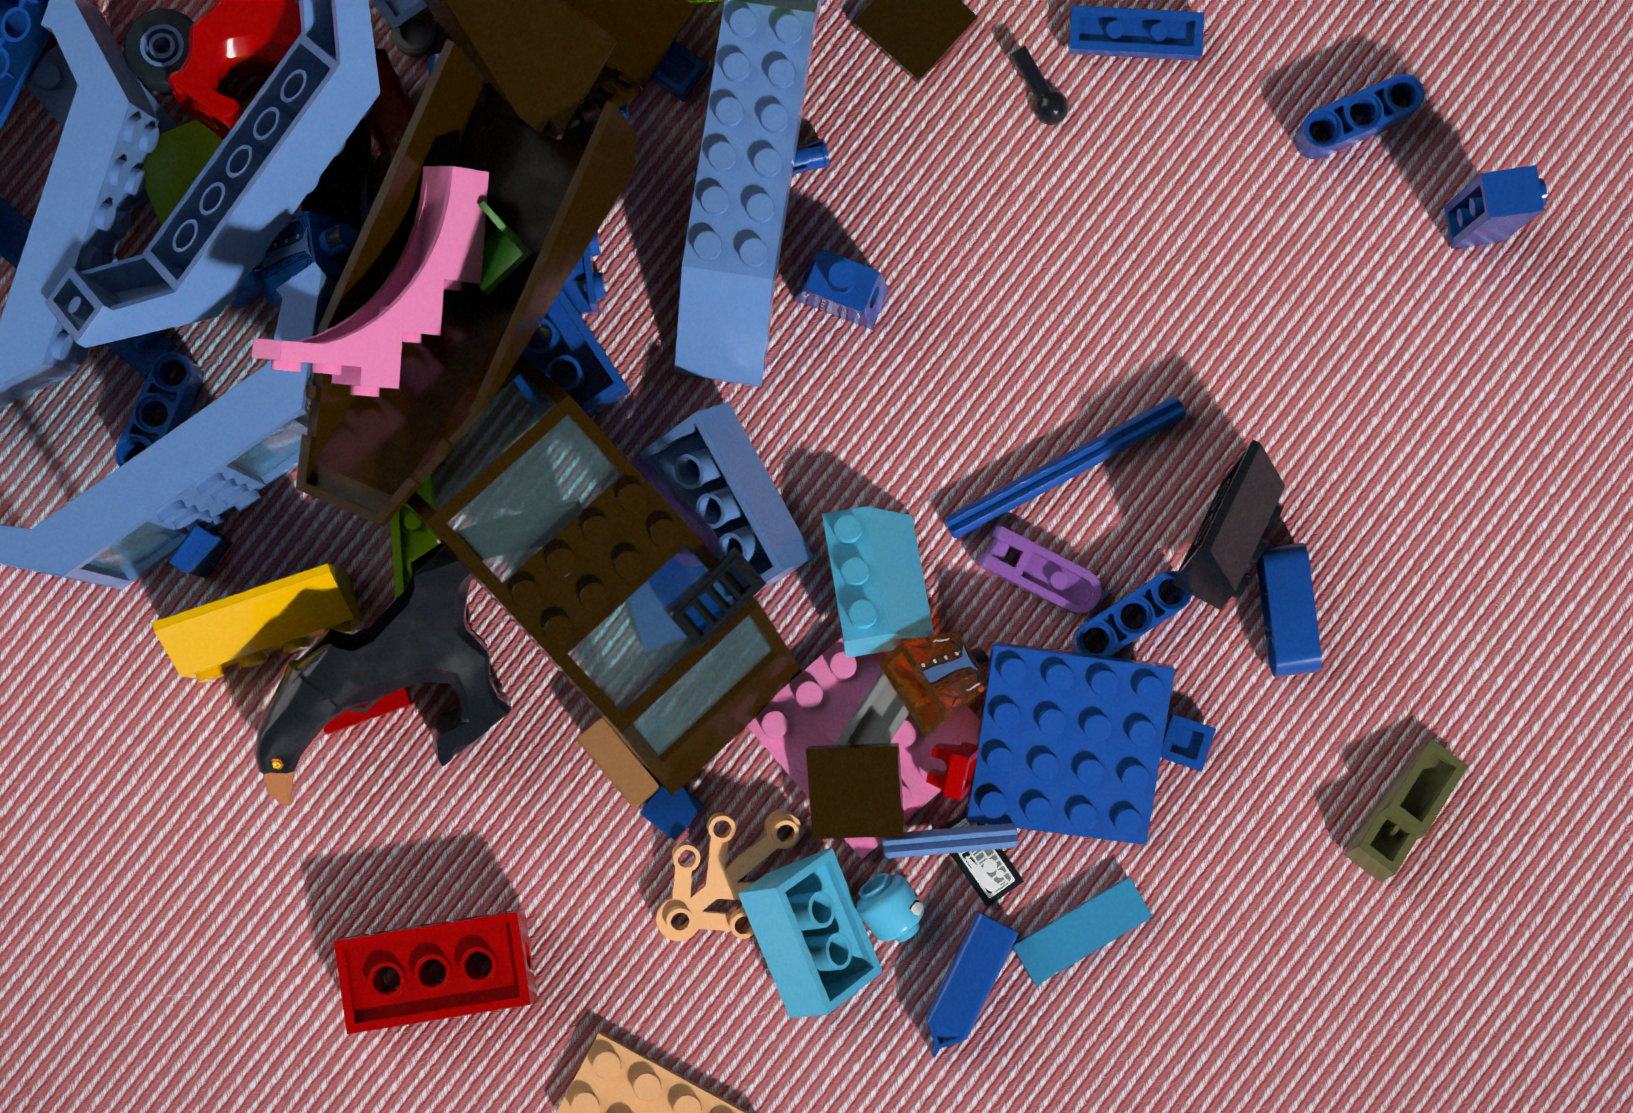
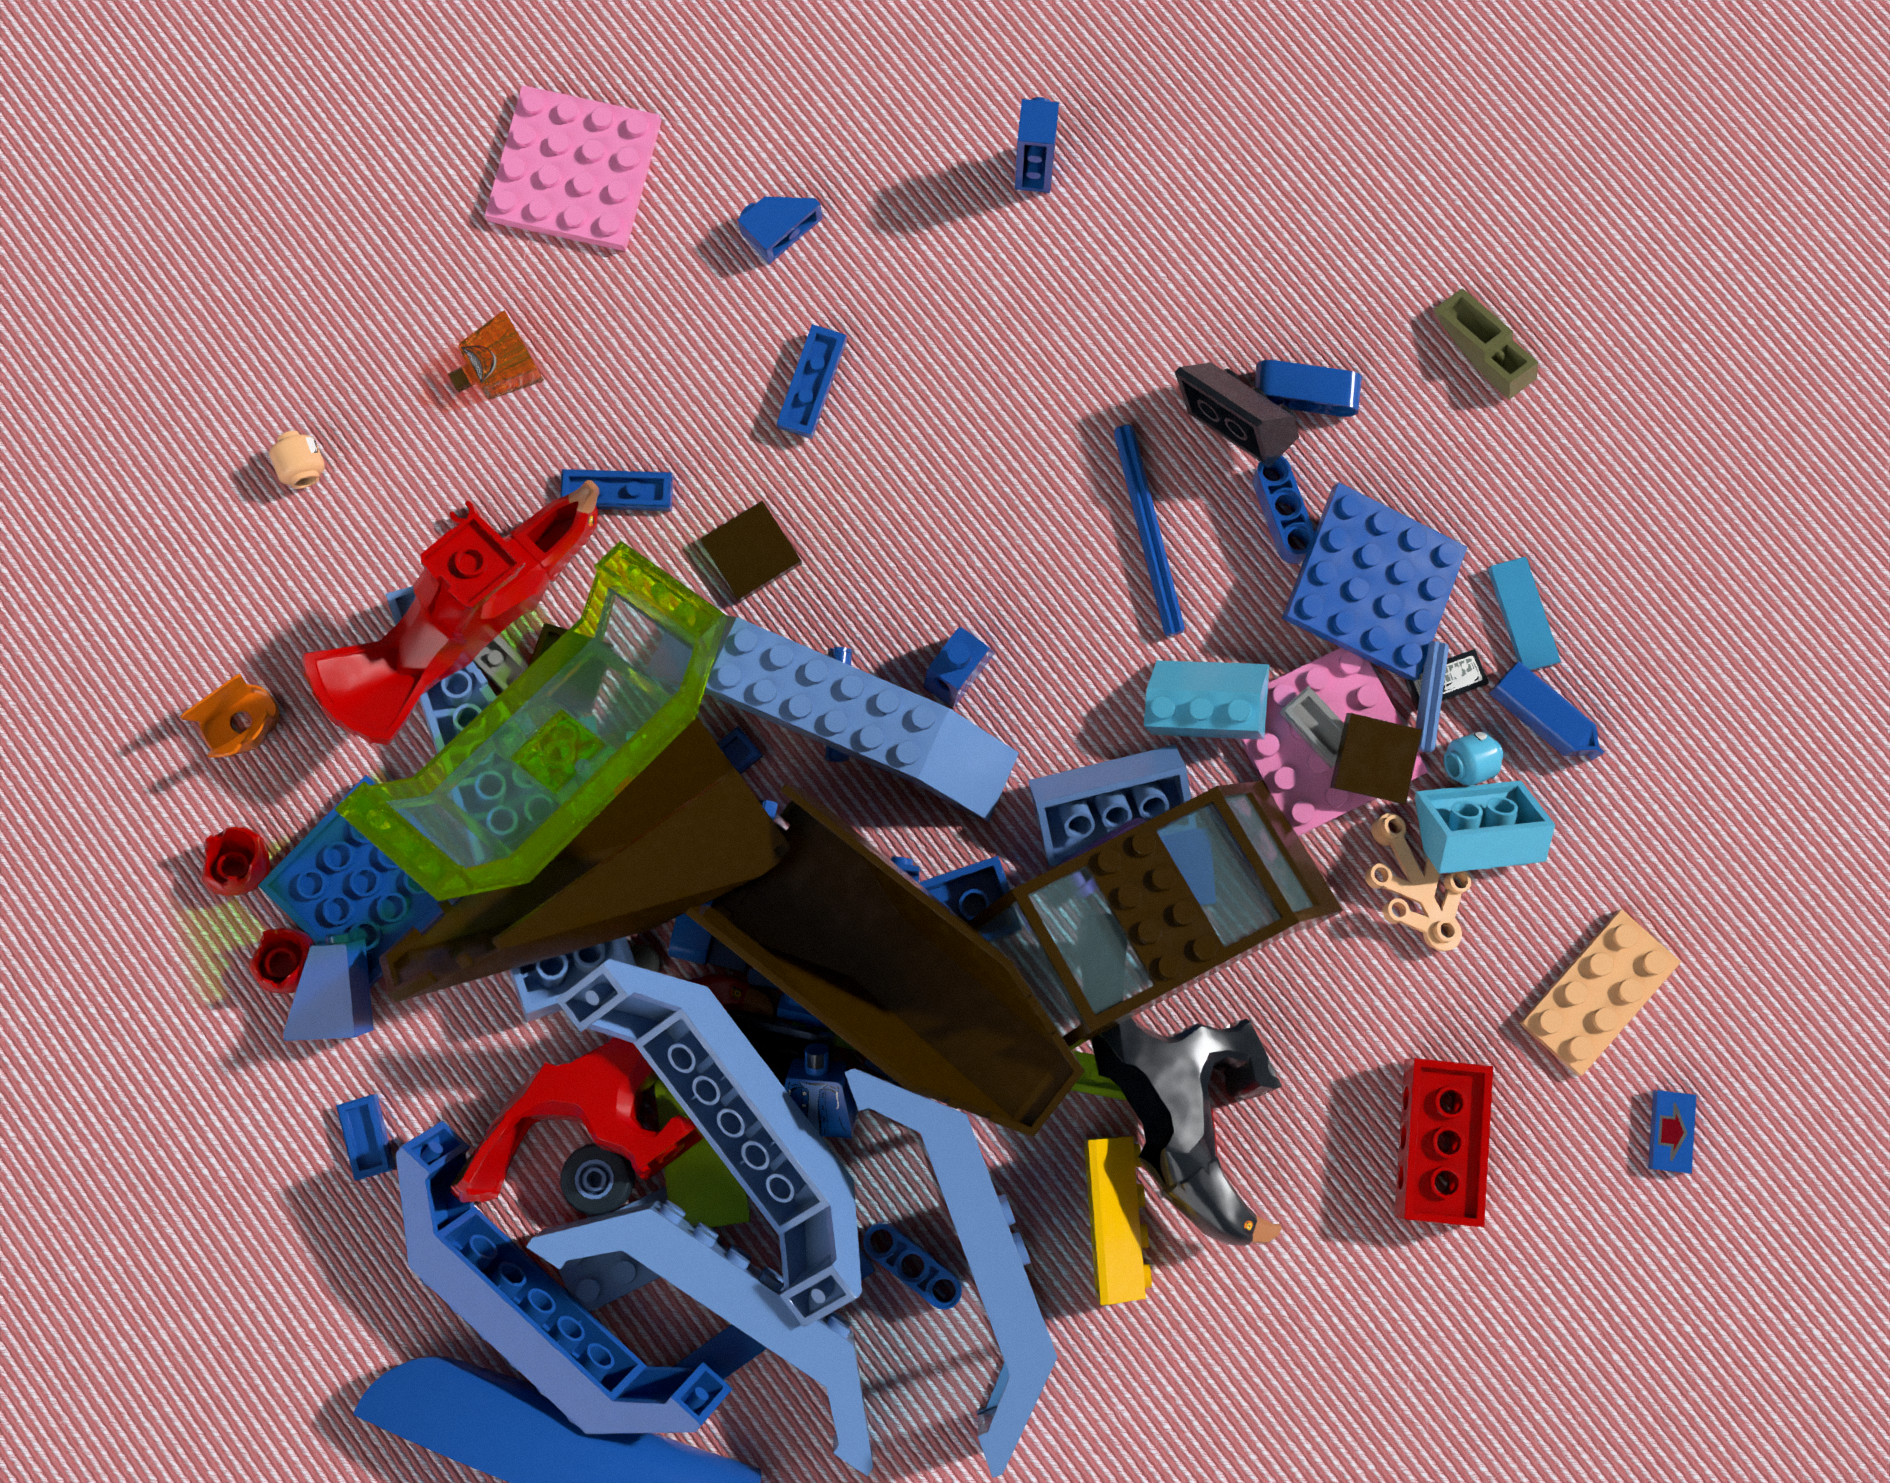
camera: 75 degrees left, 5 degrees down
(200, 551) = (1043, 1254): blue tile -> none
(438, 256) = (856, 973): bright pink arch -> none
(501, 253) = (866, 929): bright green bracket -> none
(618, 763) = (1305, 946): medium nougat slope -> none
(673, 812) = (1355, 917): blue slope -> none
(714, 622) = (1202, 836): black slope -> none
(936, 677) = (1303, 669): clear orange torso -> none
(960, 764) = (1374, 670): red tile -> none
(1042, 572) = (1230, 569): medium lavender plate -> none
(1050, 105) = (850, 465): black bar -> none
(1187, 742) = (1395, 491): blue plate -> none
(1376, 105) = (924, 215): blue beam -> none

